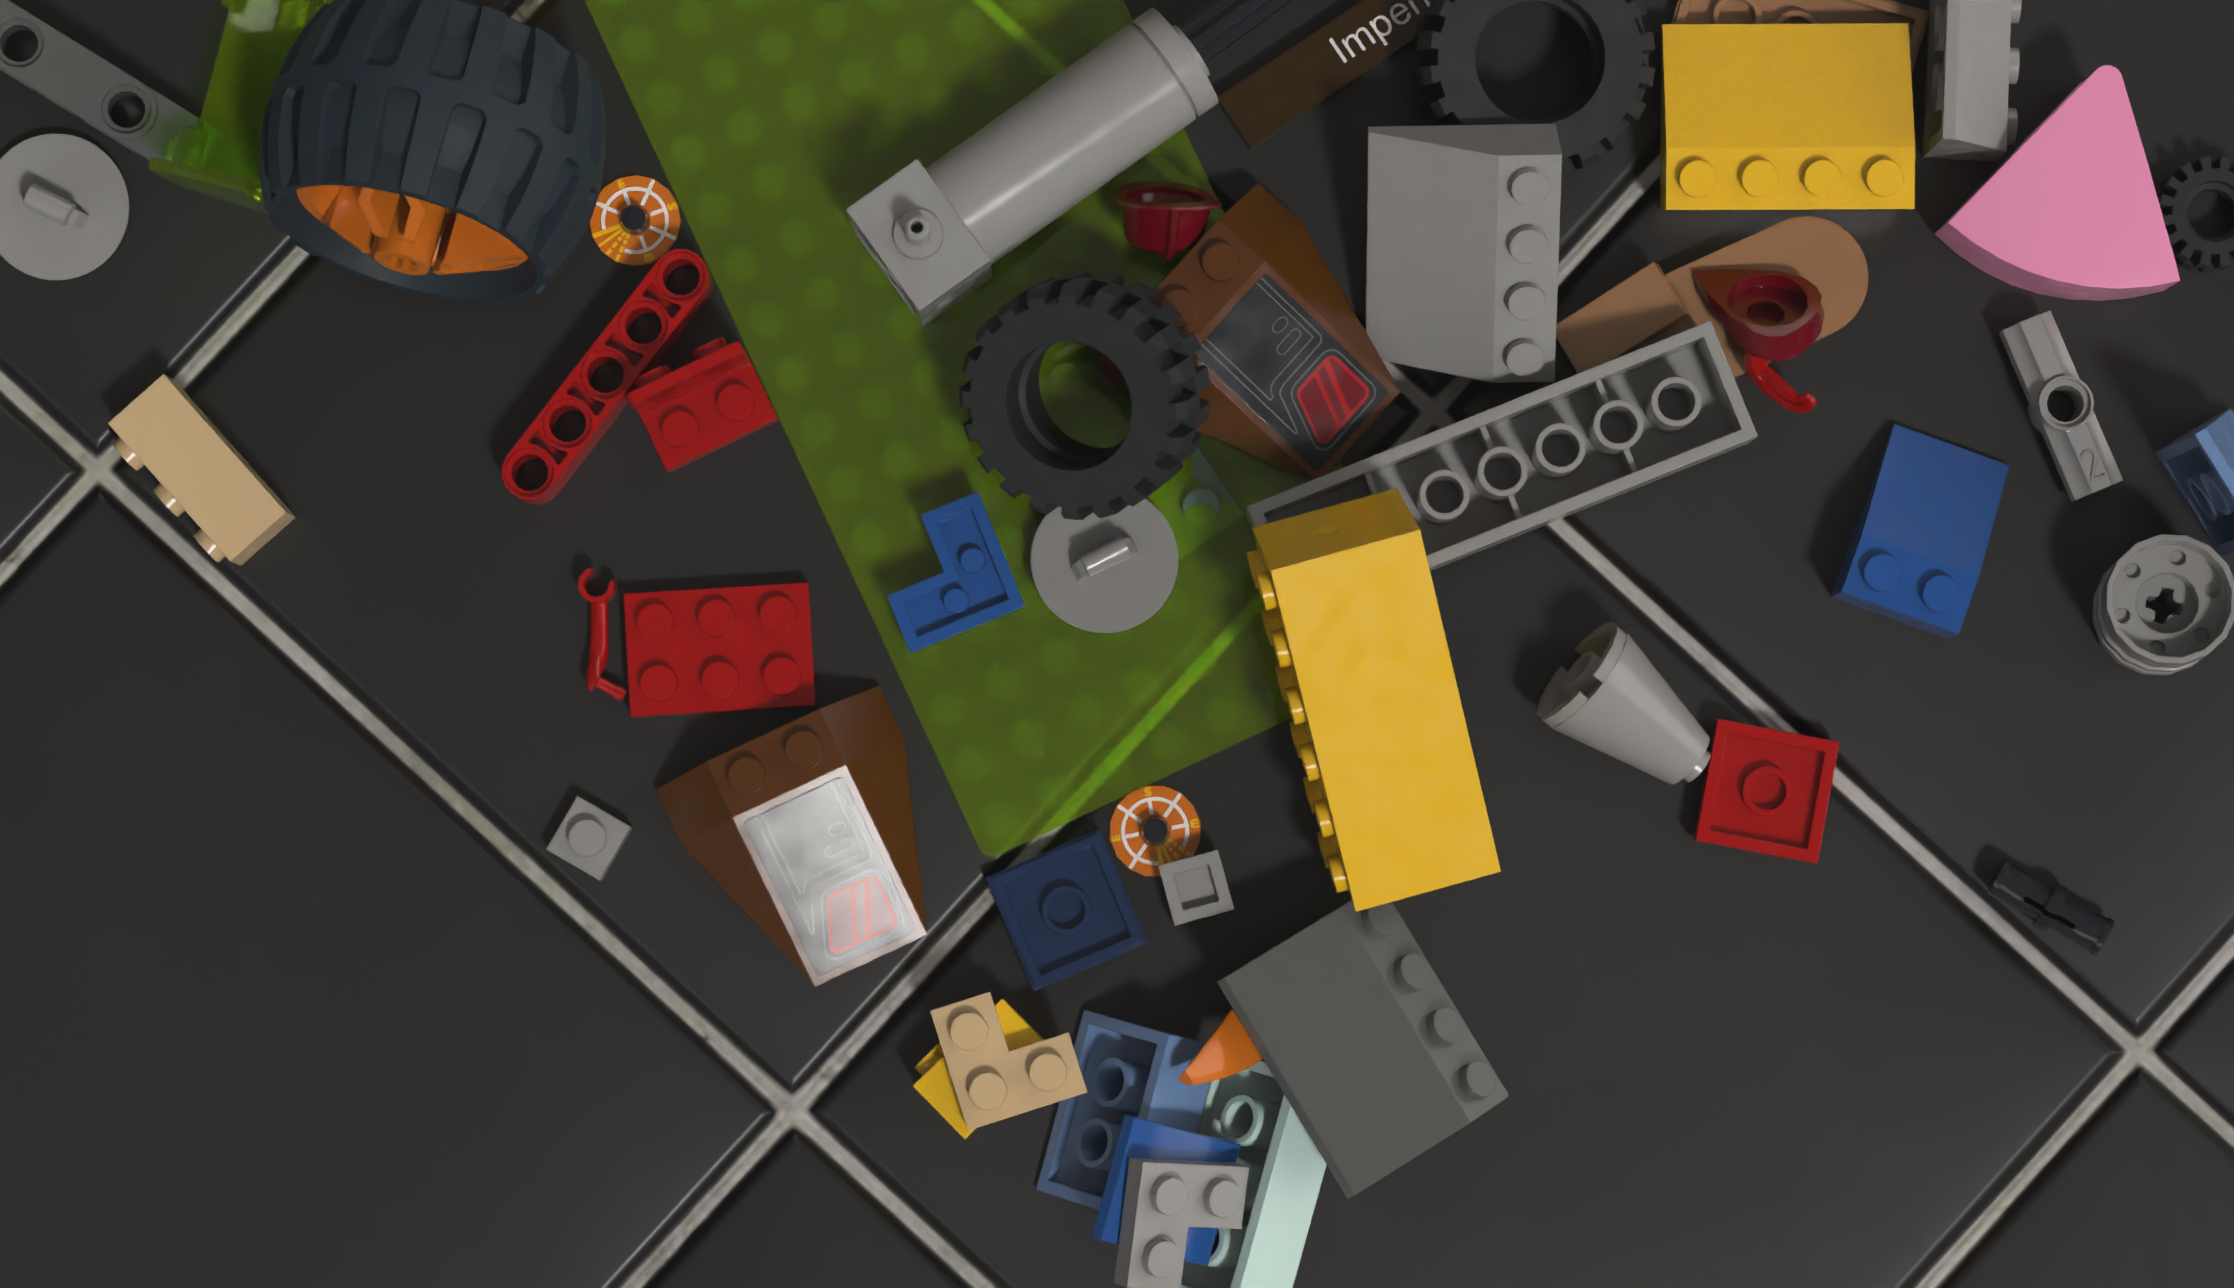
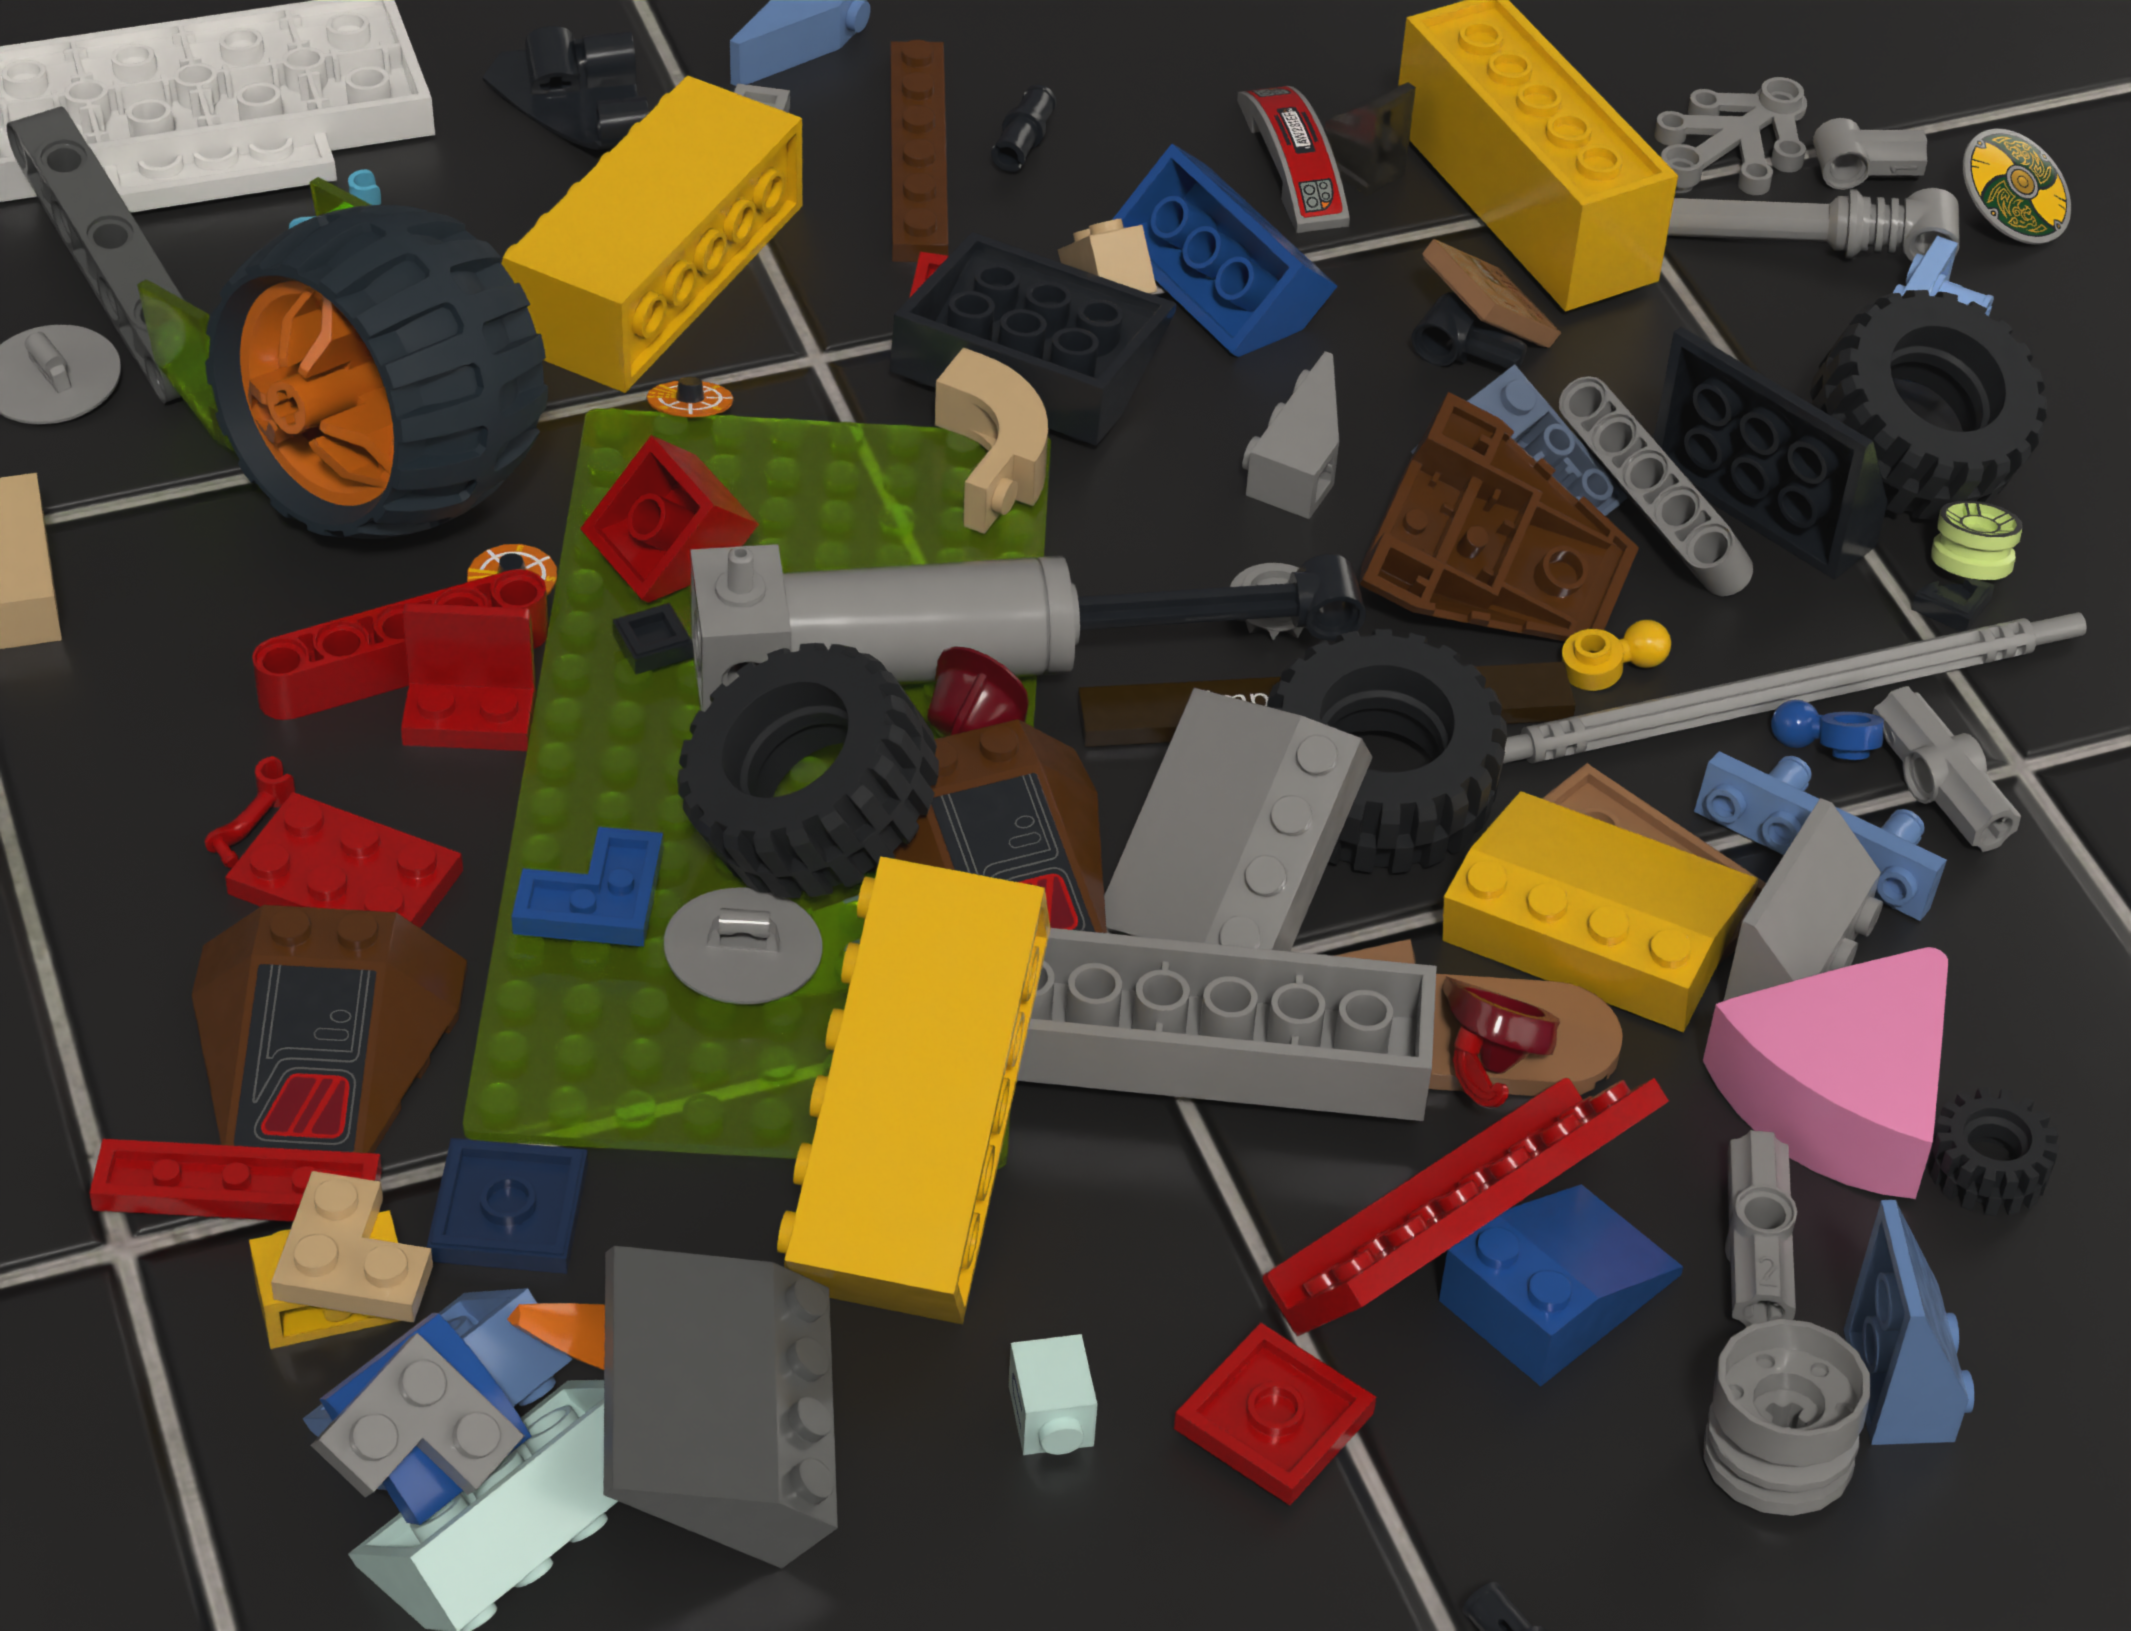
camera: 25 degrees right, 40 degrees down
(589, 838) = (114, 953): light grey plate -> none
(759, 115) = (661, 512): none -> red slope
(821, 252) = (652, 638): none -> black tile
(848, 1014) = (214, 1178): none -> red plate
(1154, 829) = (640, 1188): orange piece -> none
(1196, 887) = (647, 1224): light grey plate -> none
(1594, 873) = (1052, 1395): none -> light aqua brick
(1625, 708) = (1168, 1263): light grey cone -> none
(1827, 524) = (1452, 1199): none -> red bracket

